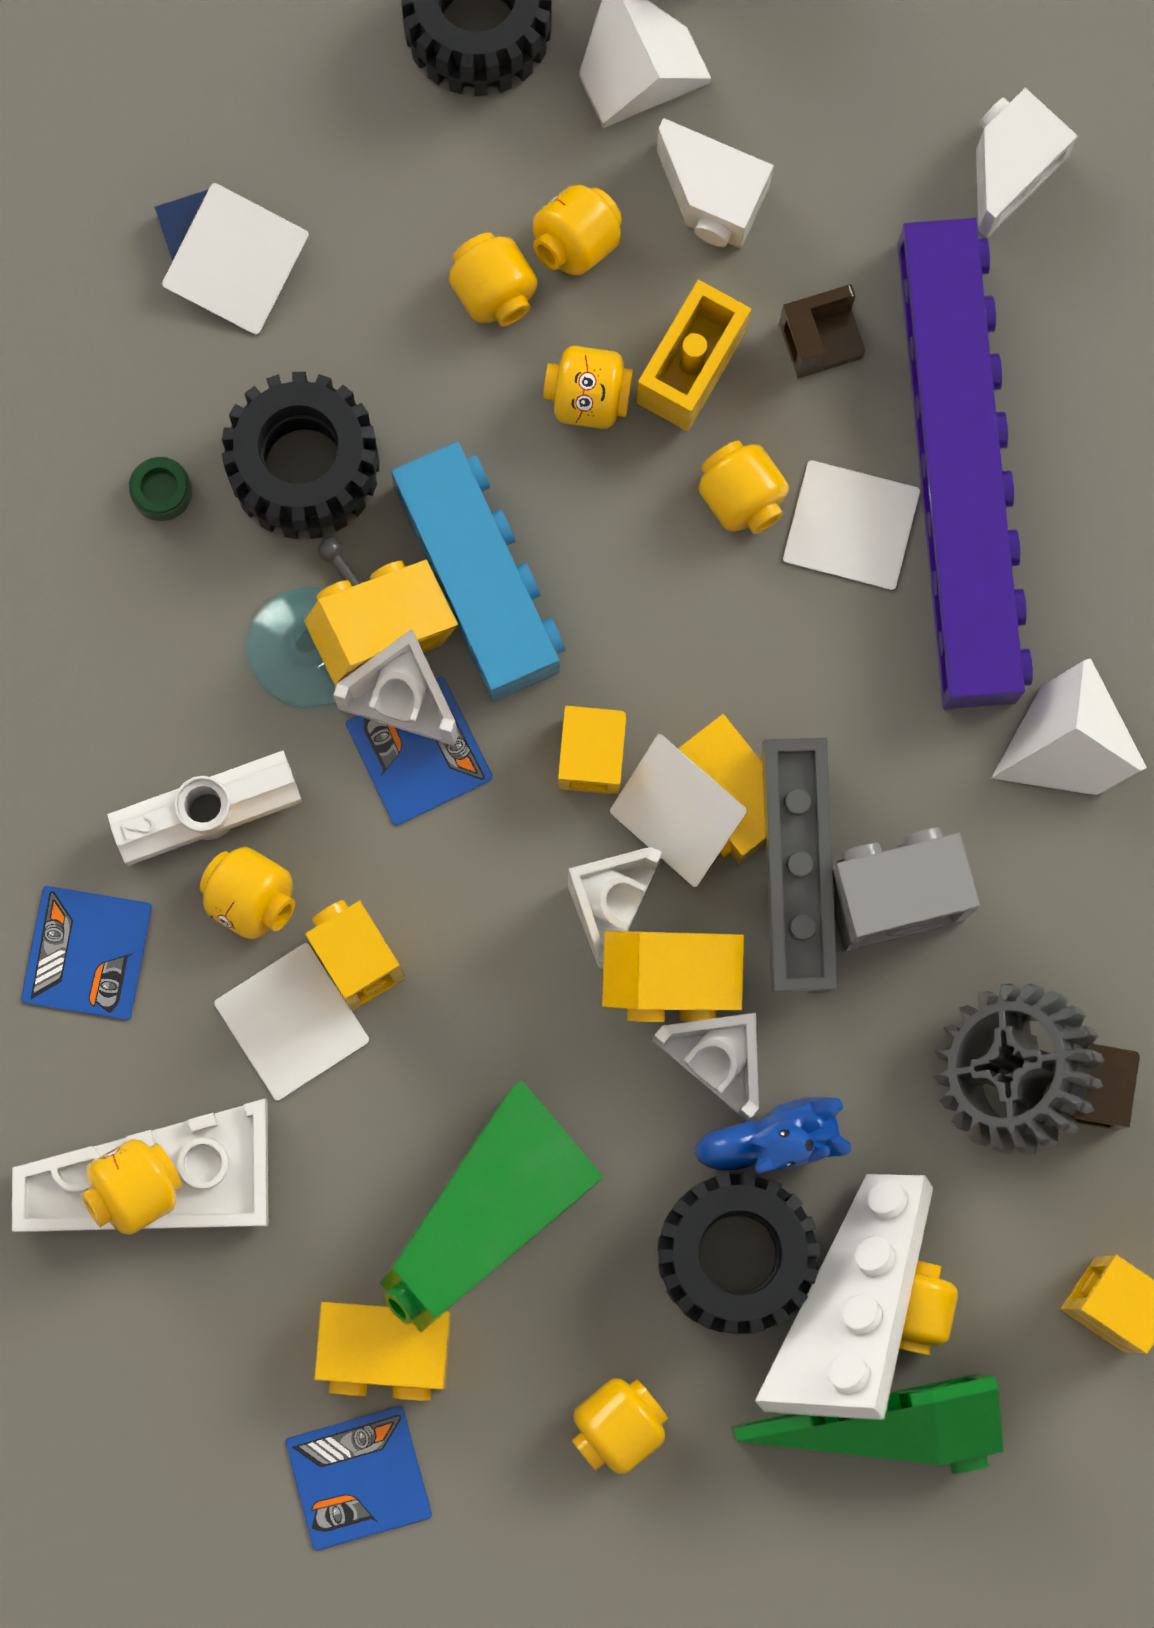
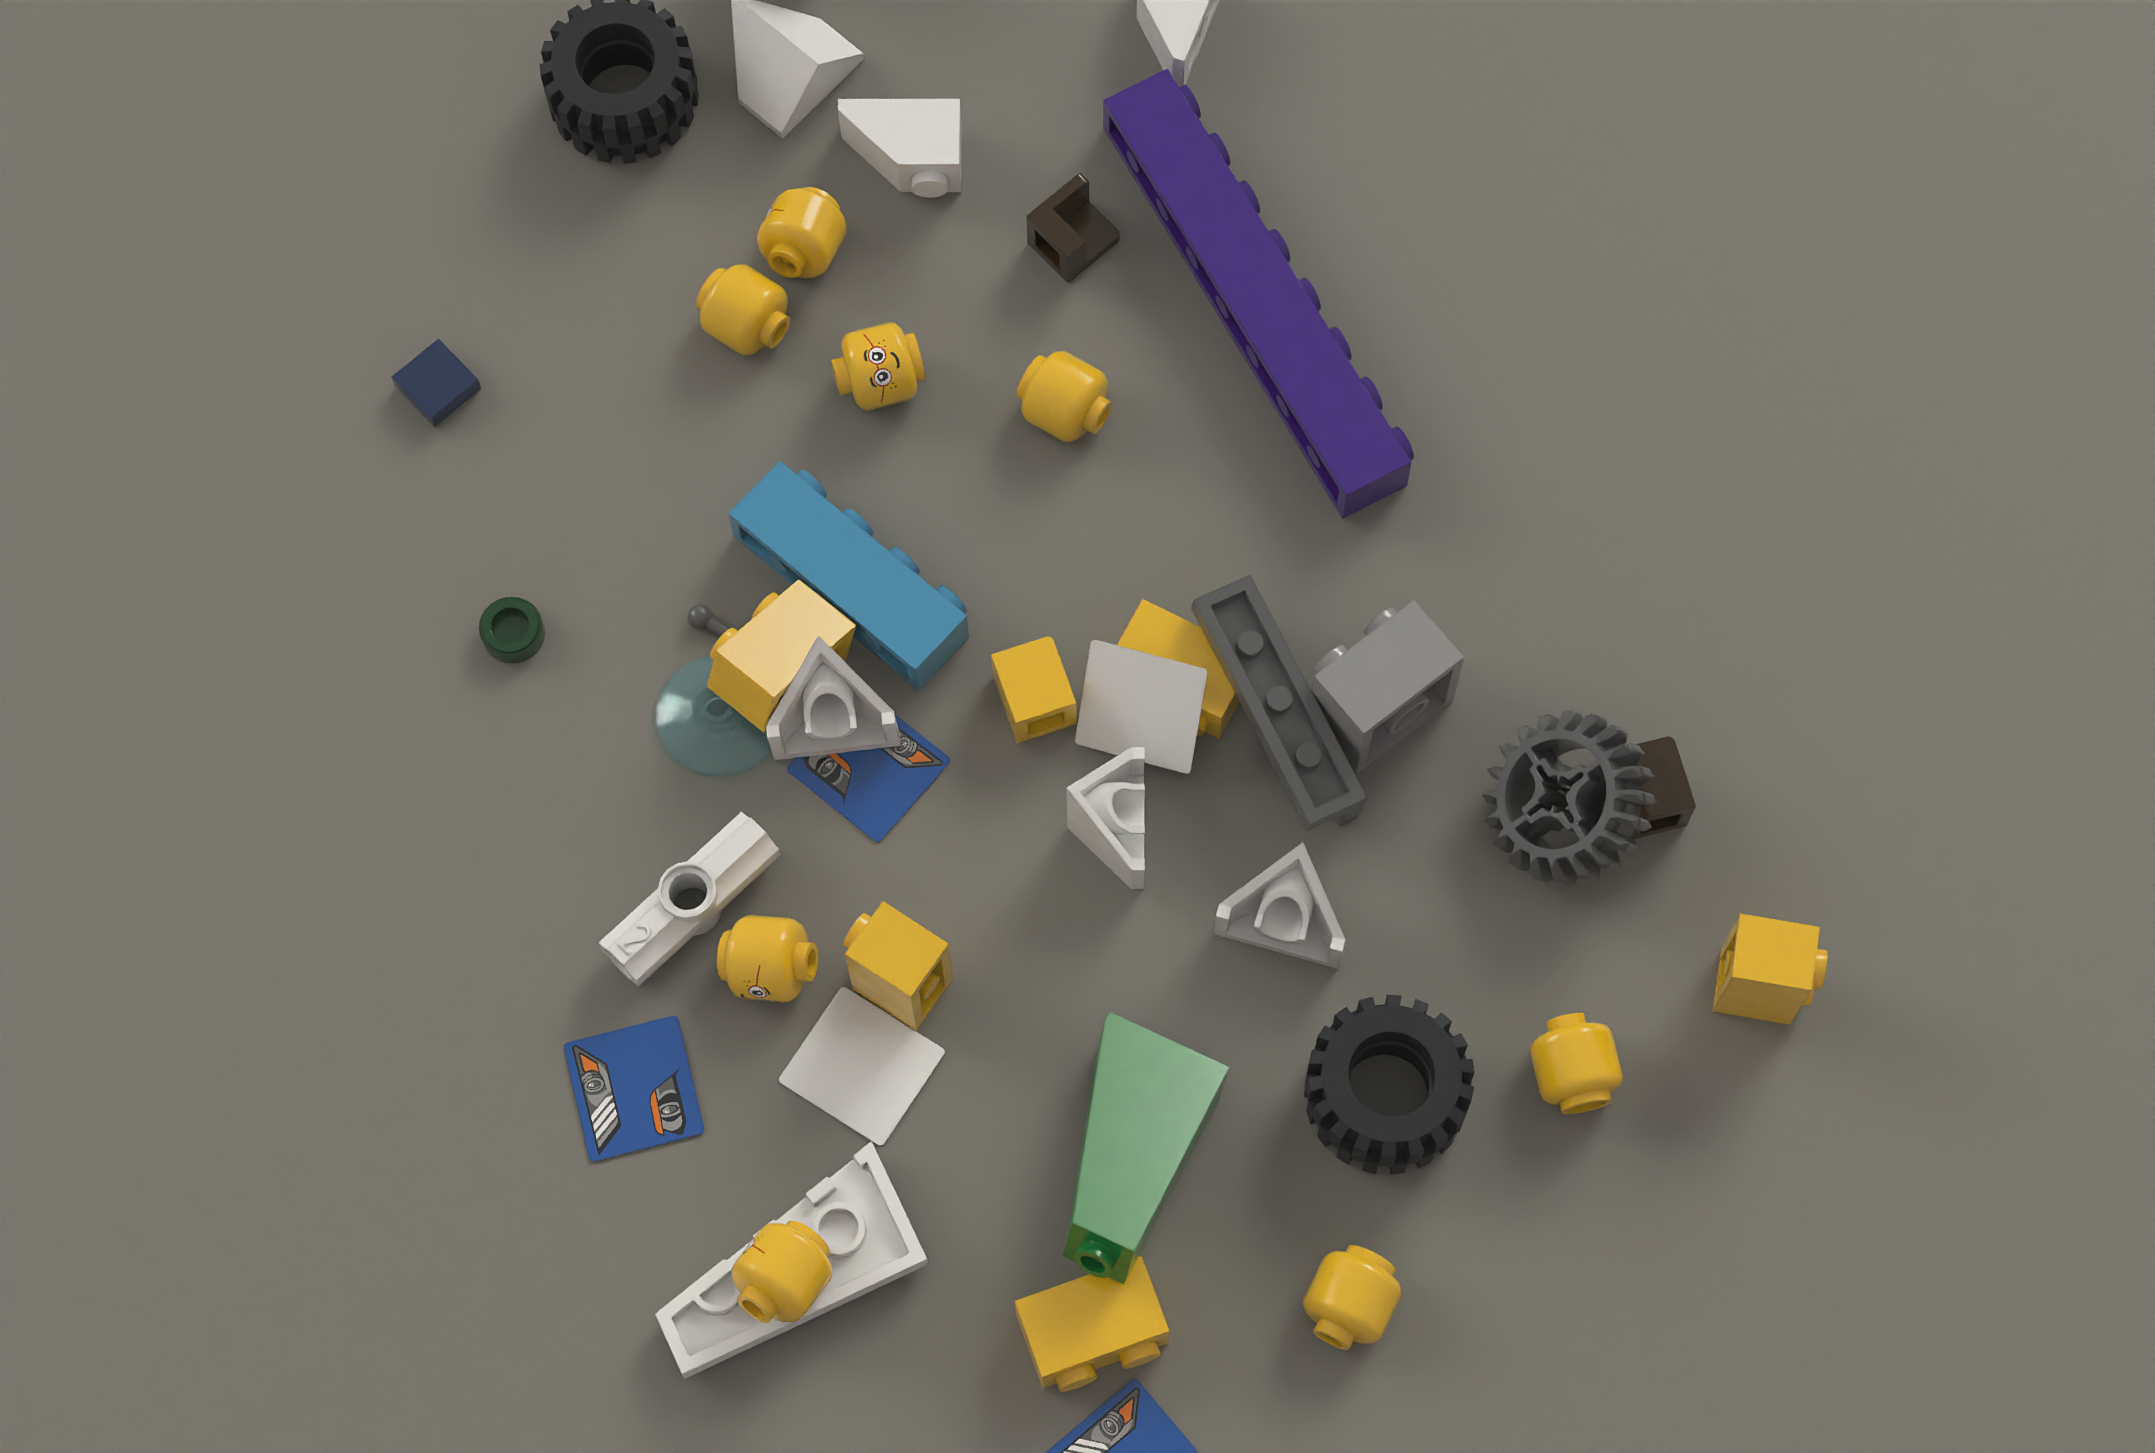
camera: 20 degrees left, 10 degrees down
(235, 258) = (489, 392): white sticker -> none
(289, 409) = (624, 493): black tyre -> none
(672, 973) = (1204, 850): yellow brick -> none
(693, 355) = (963, 296): yellow brick -> none
(780, 1140) = (1379, 961): blue animal -> none
(851, 525) = (1179, 391): white sticker -> none
(852, 1323) = (1526, 1091): white wing -> none
(926, 1424) = (1645, 1161): green wedge -> none
(1071, 738) = (1474, 490): white slope -> none

